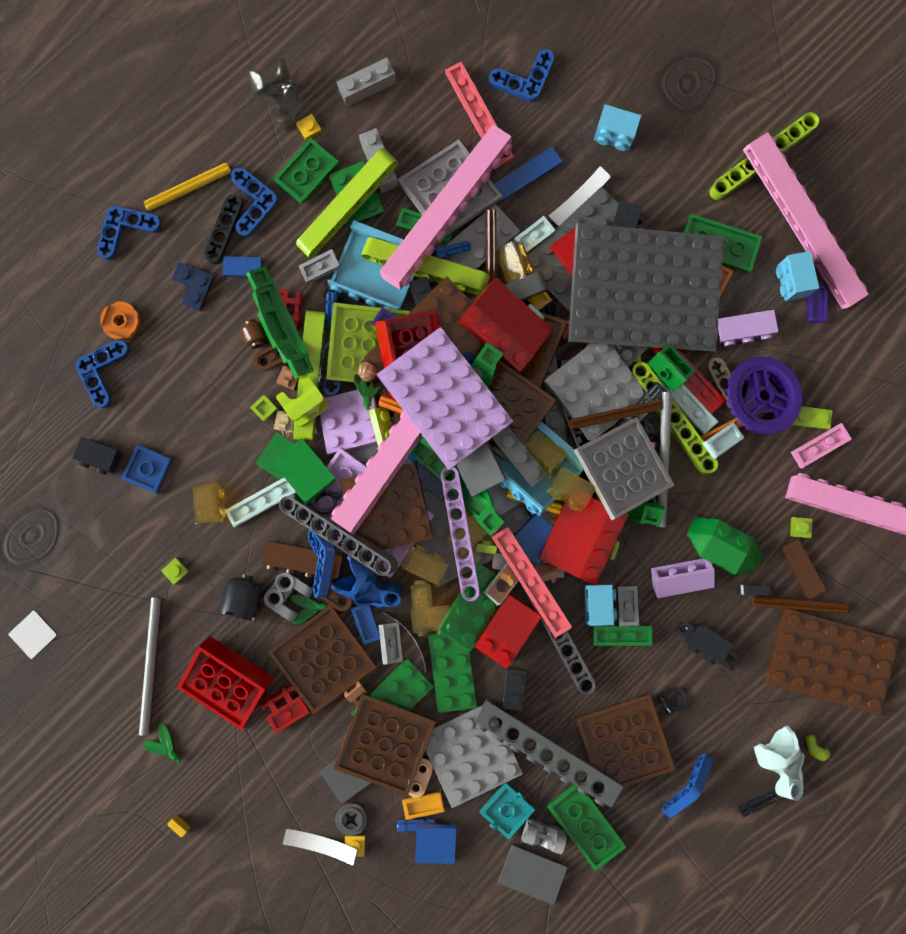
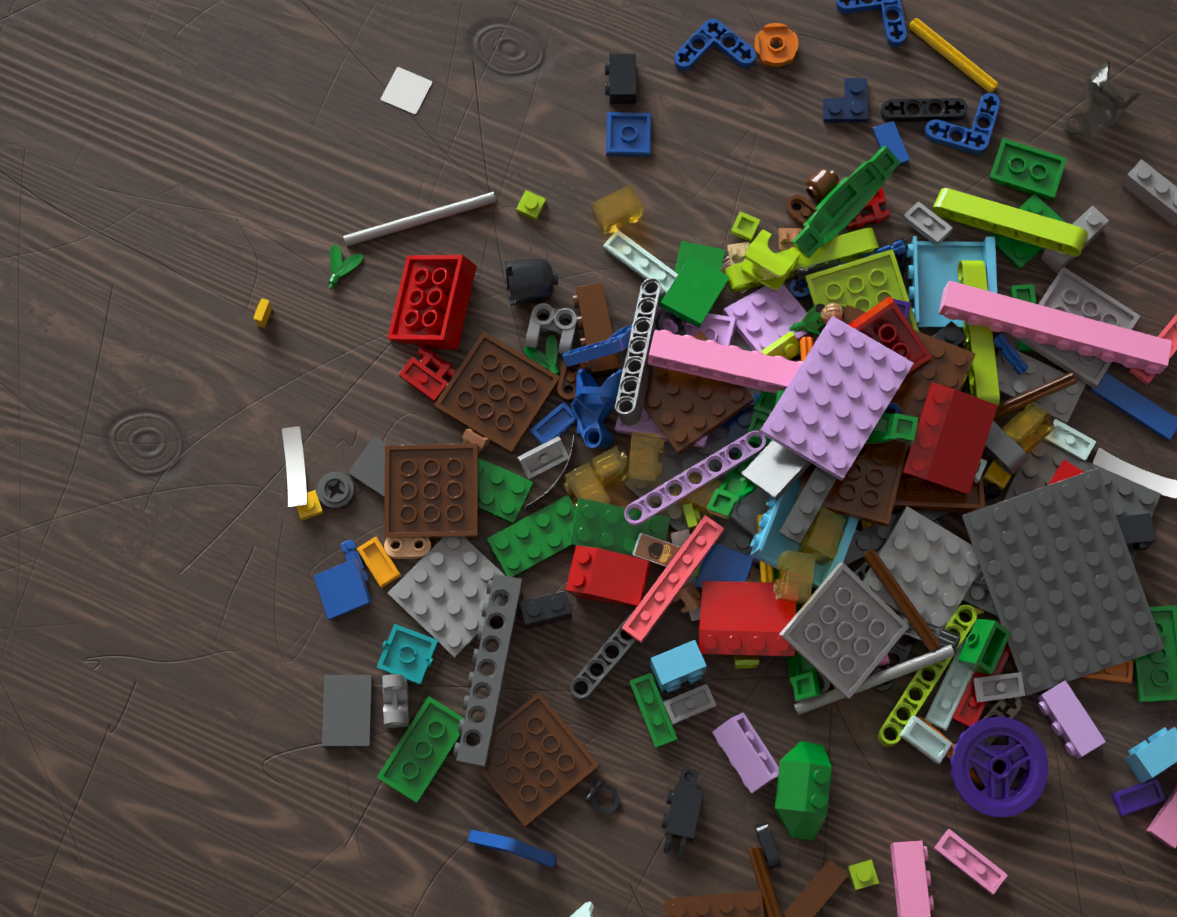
camera: 70 degrees right, 10 degrees down
(308, 127) = (1078, 153): yellow plate -> none
(705, 369) = (999, 687): none -> light grey plate
(814, 418) = (998, 840): lime plate -> none

